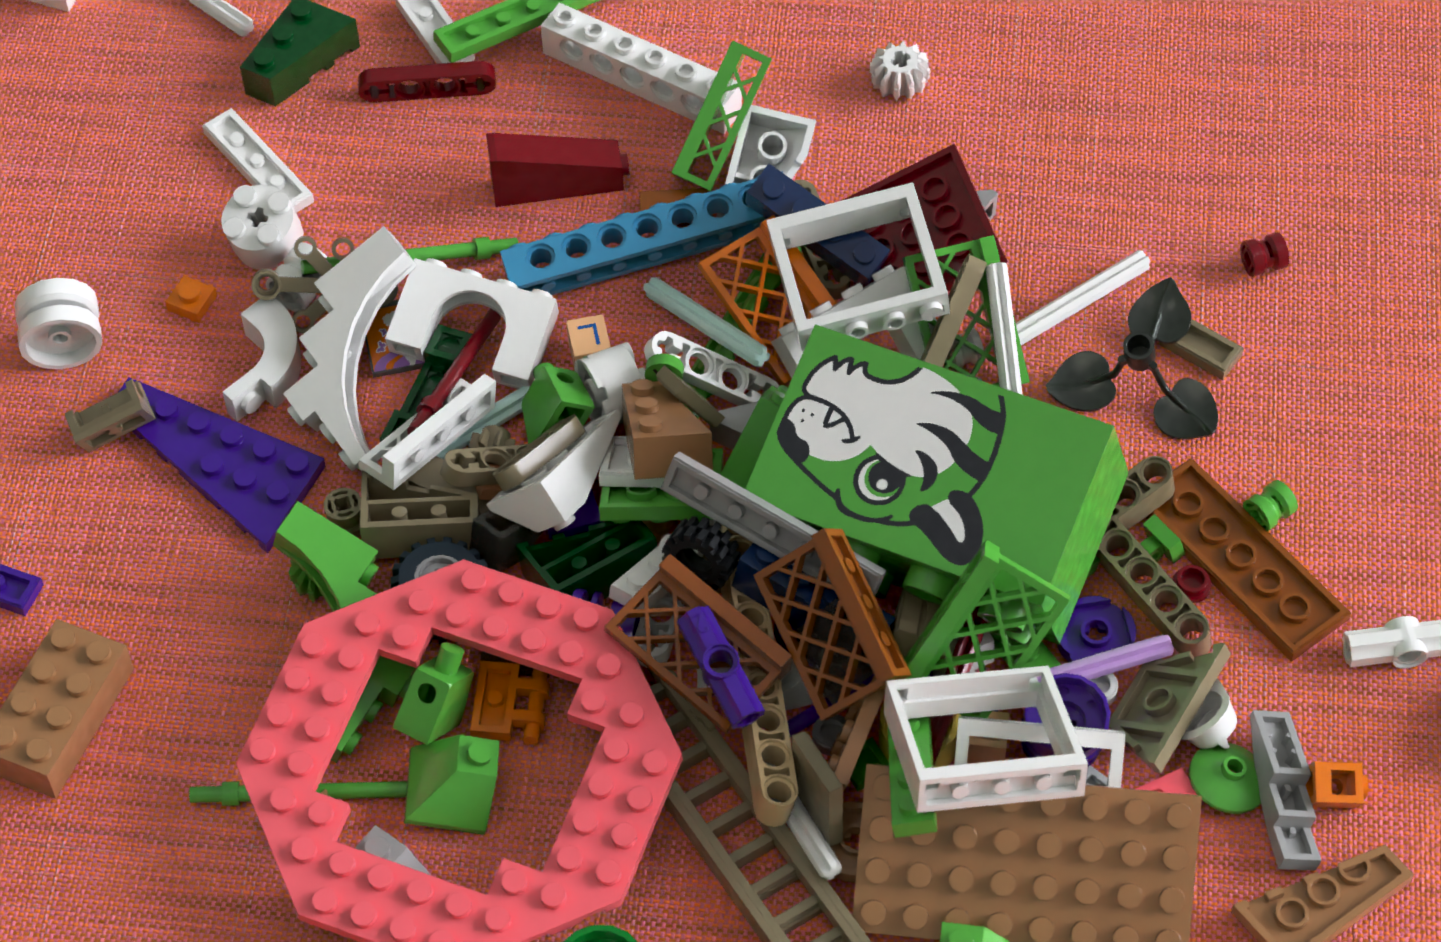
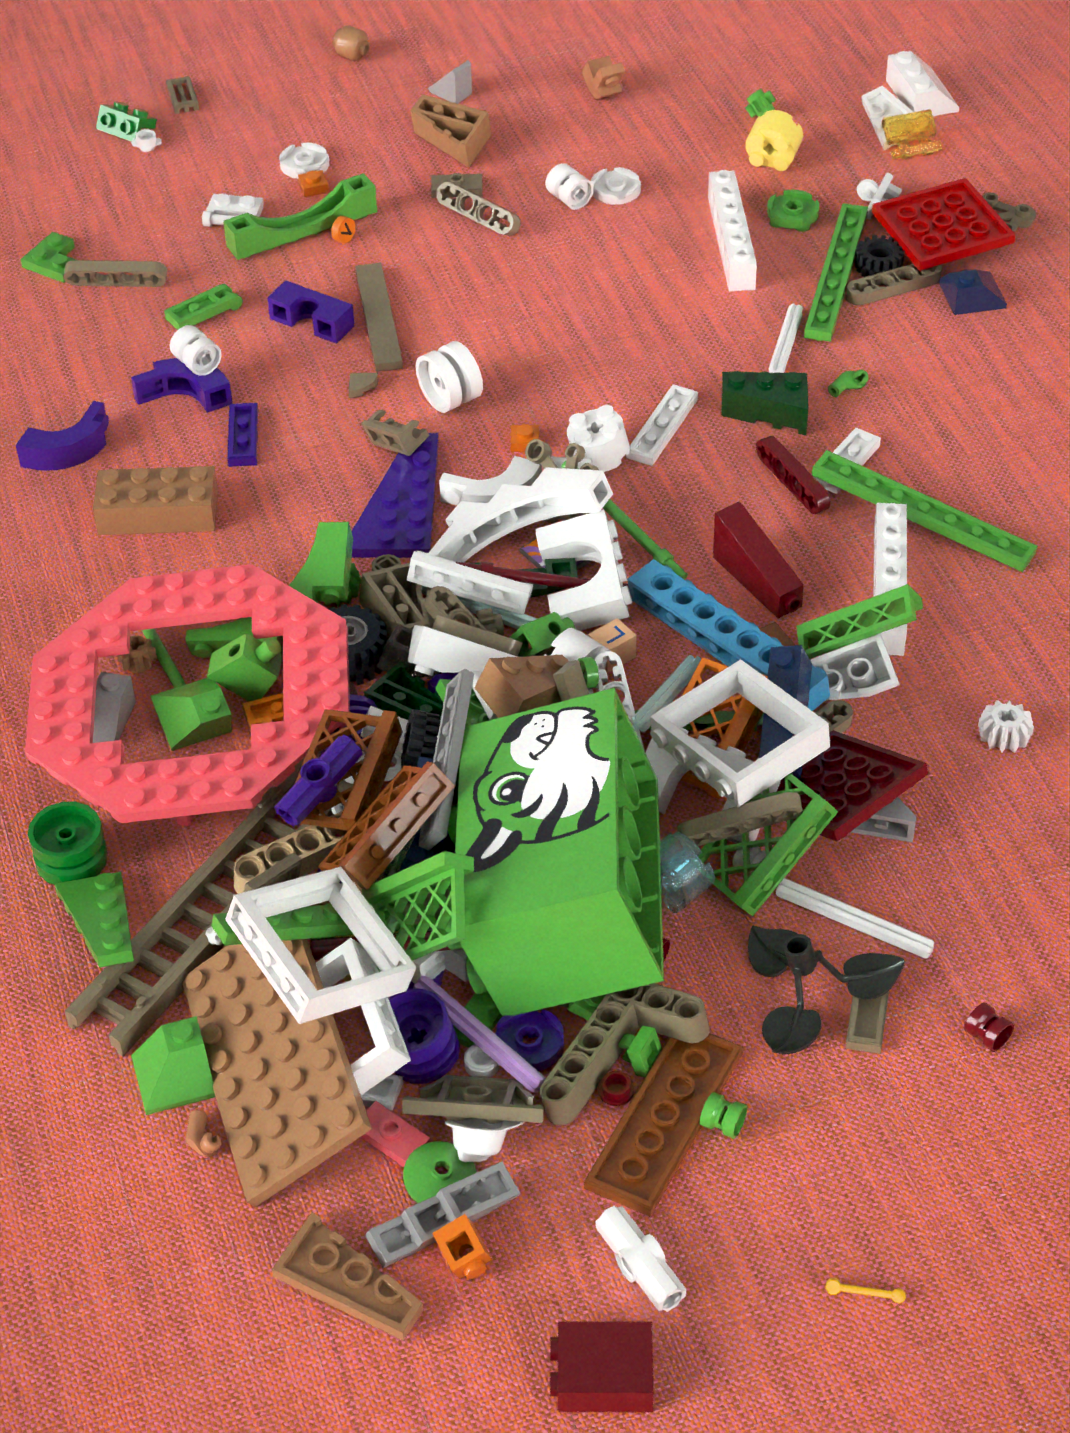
camera: 65 degrees right, 10 degrees down
(1003, 327) = (742, 874): white axle -> none

